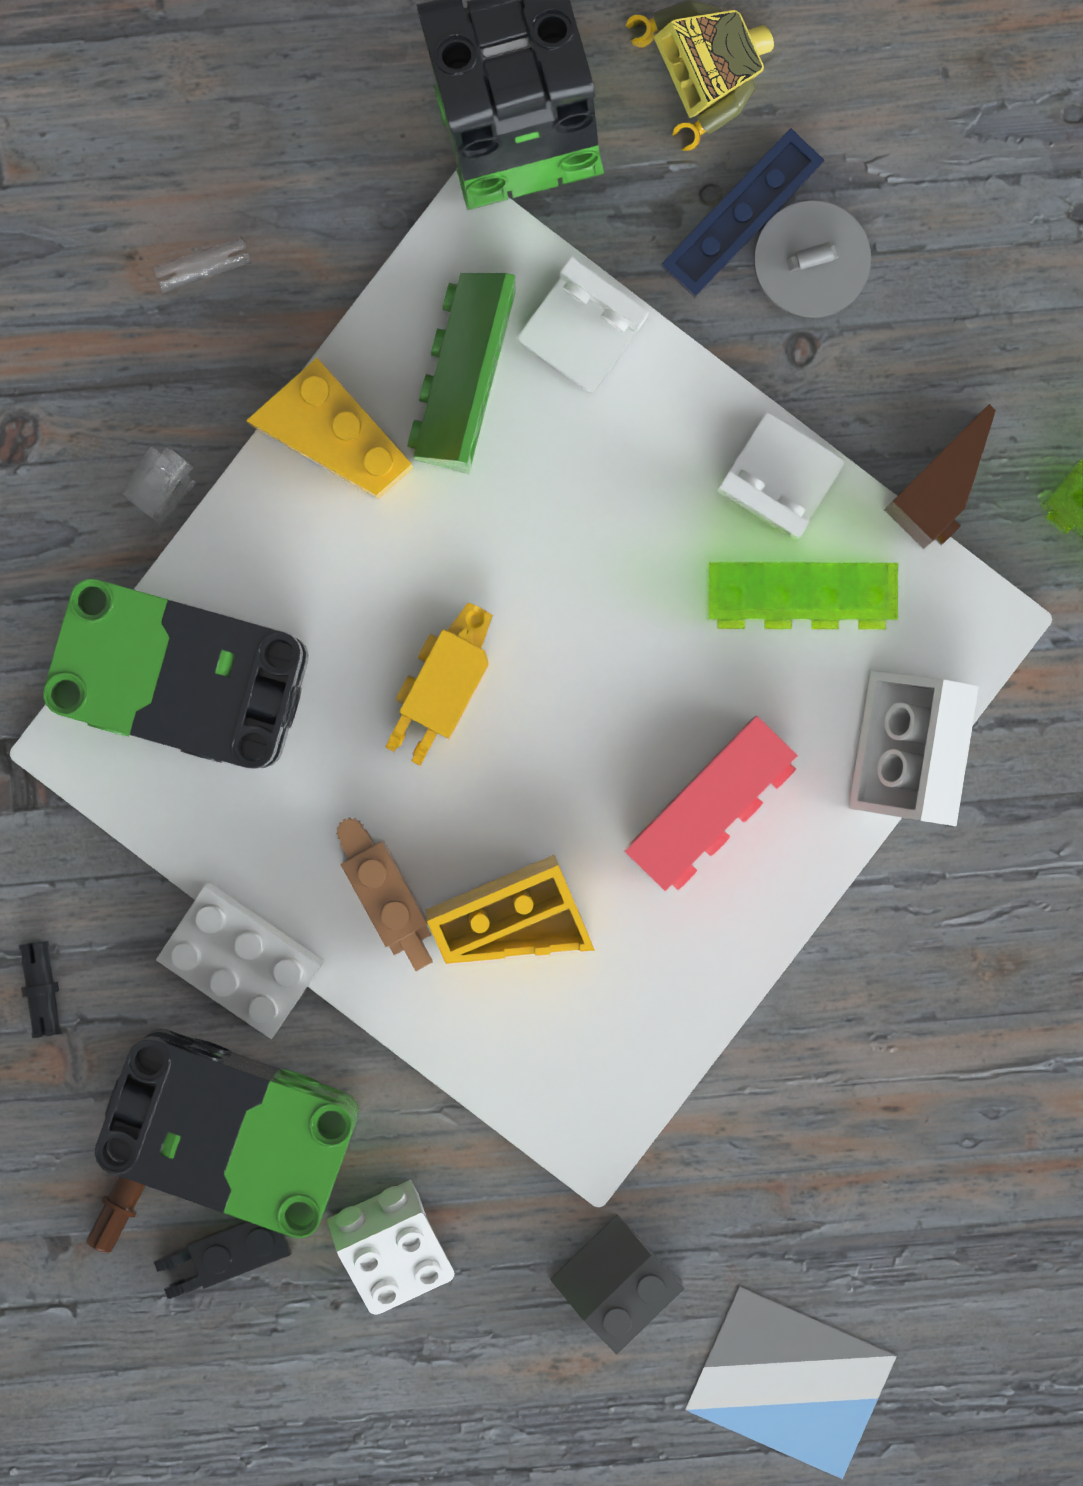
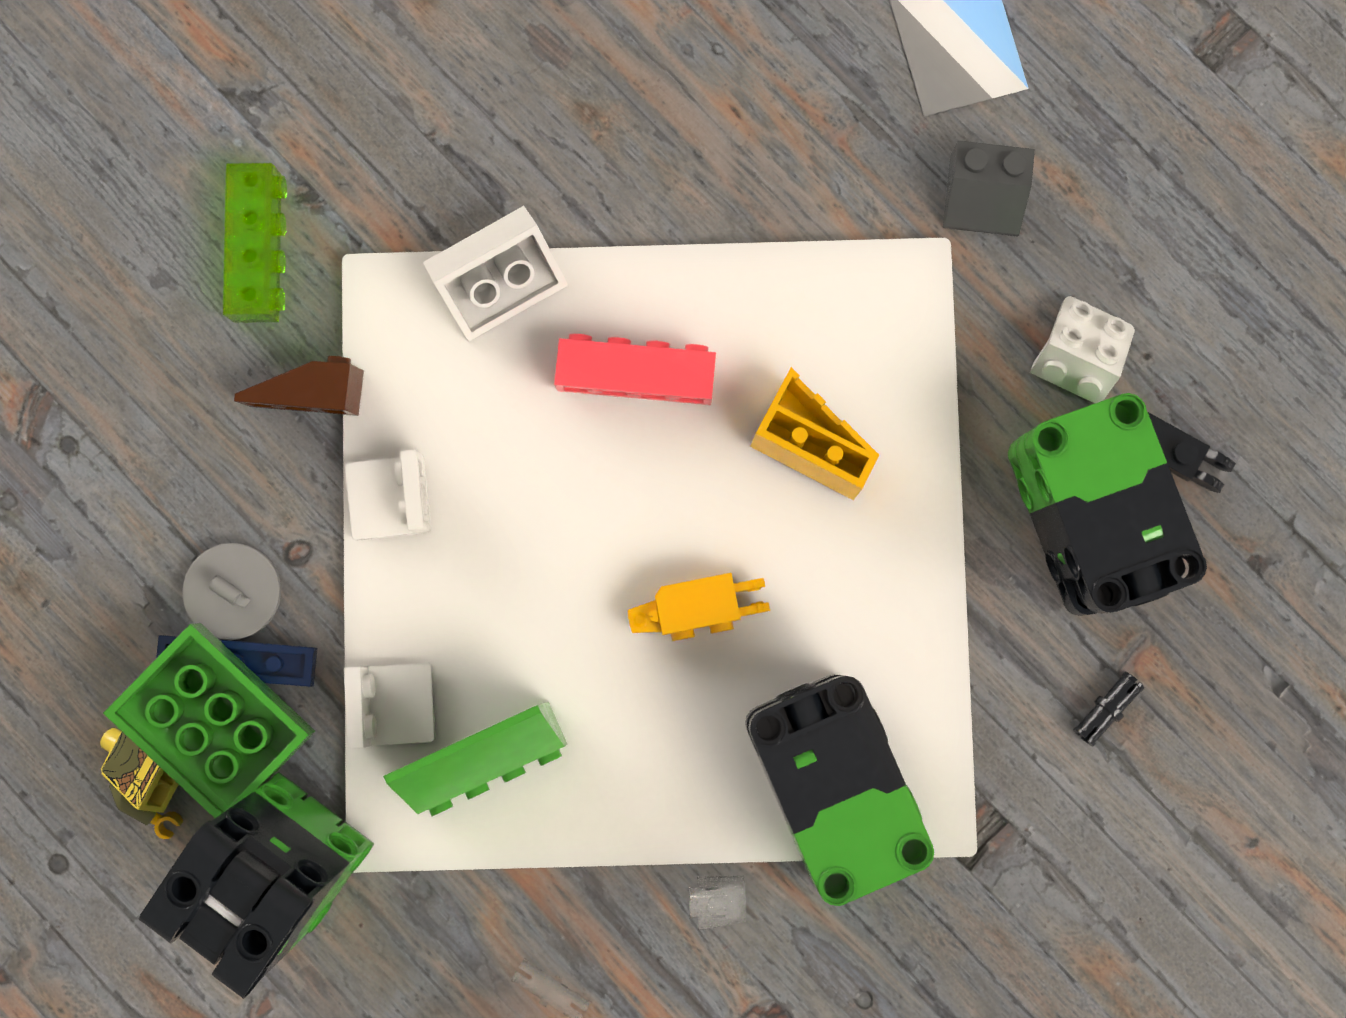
camera: 125 degrees left, 5 degrees down
(115, 1214) = (1220, 539): reddish brown axle -> none
(239, 960) = (983, 593): white plate -> none
(330, 428) = (590, 816): yellow wedge -> none
(384, 893) = (865, 534): medium nougat hinge -> none
(698, 149) = (209, 721): none -> bright green slope
(801, 593) = (452, 423): clear neon green brick -> none

